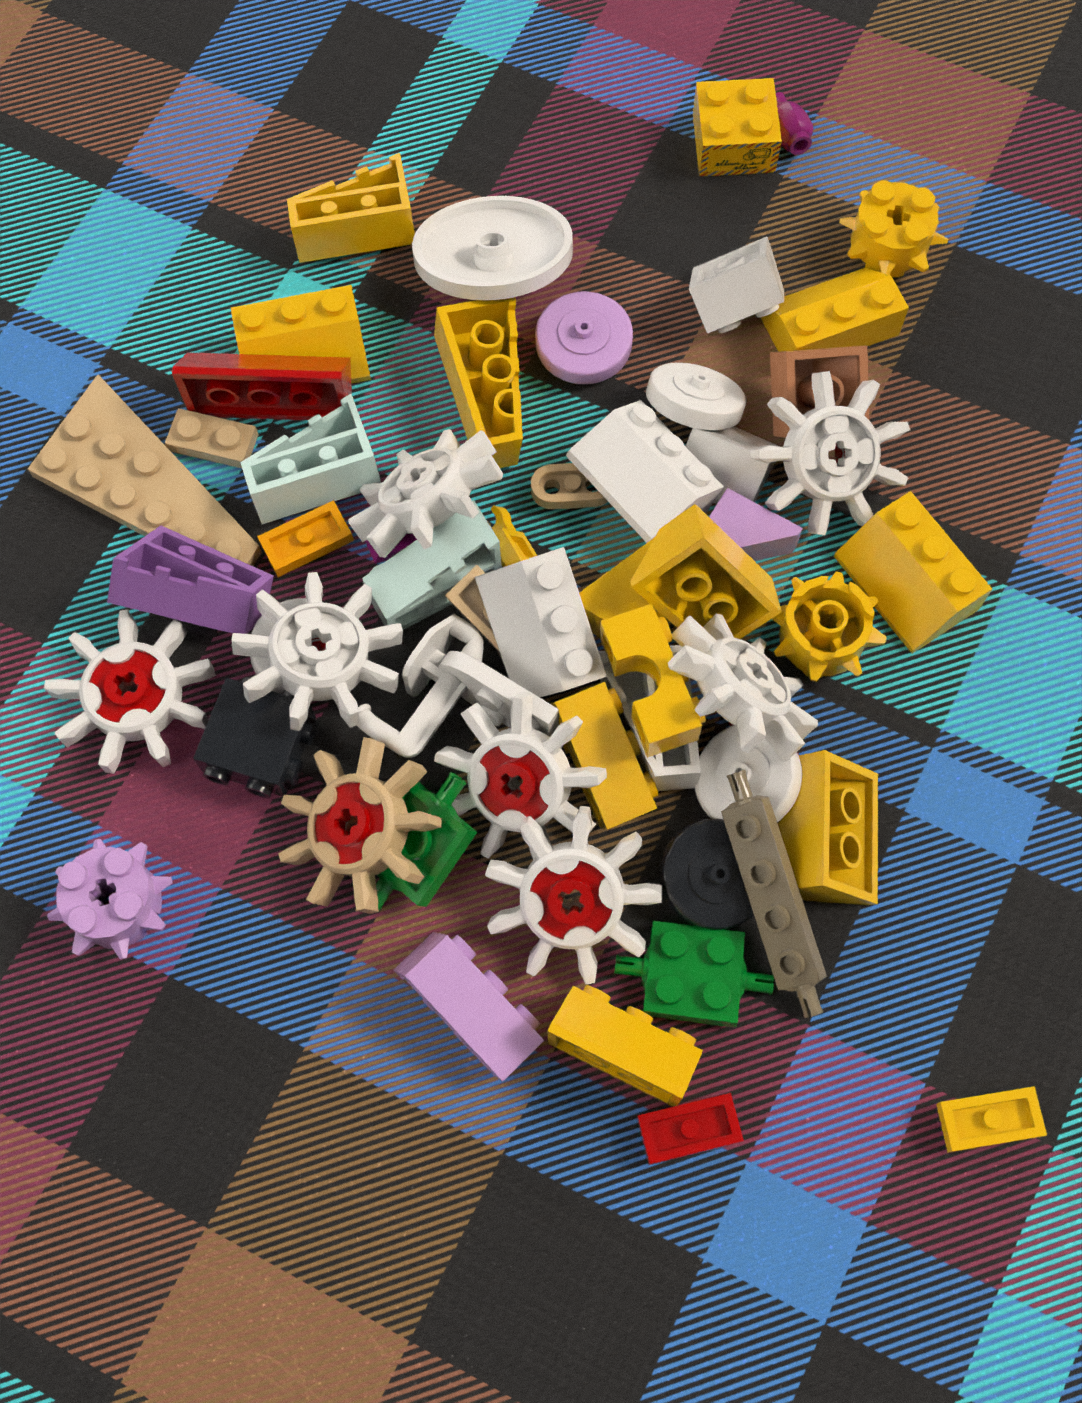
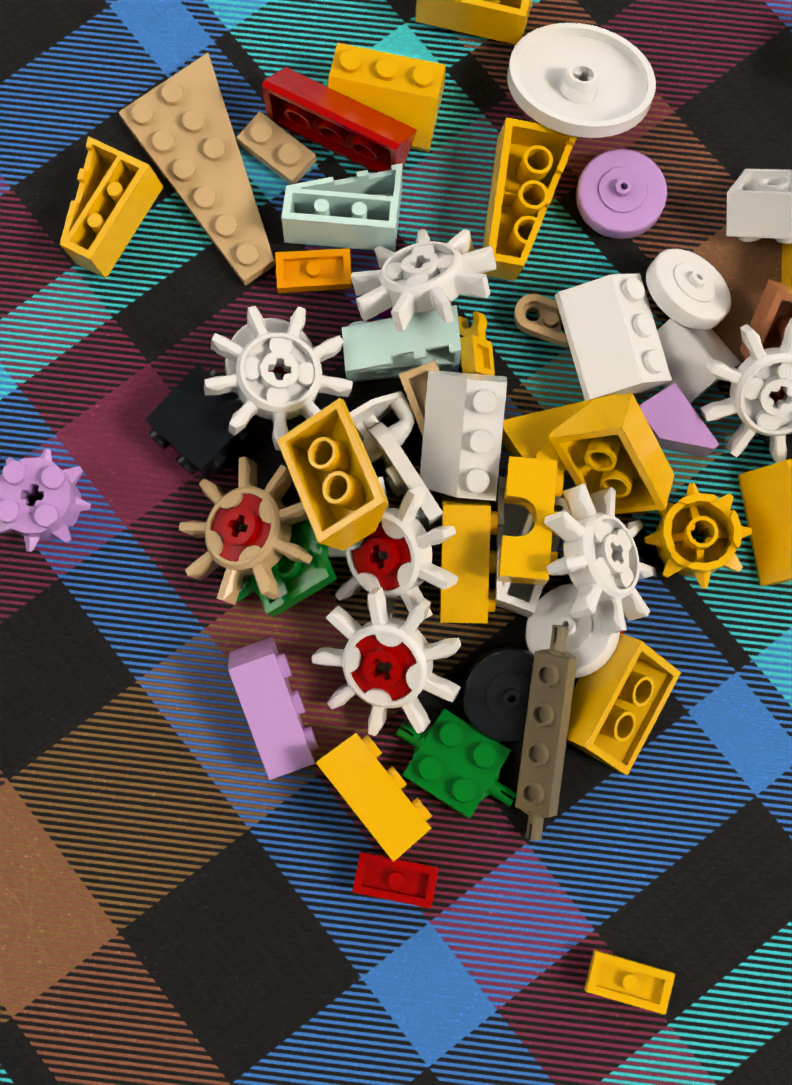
camera: 25 degrees right, 10 degrees up
(58, 563) = (108, 207): none -> yellow wedge
(121, 712) = (107, 354): white gear -> none
(187, 582) = (202, 269): medium lavender wedge -> none
(430, 718) = (334, 477): none -> yellow slope

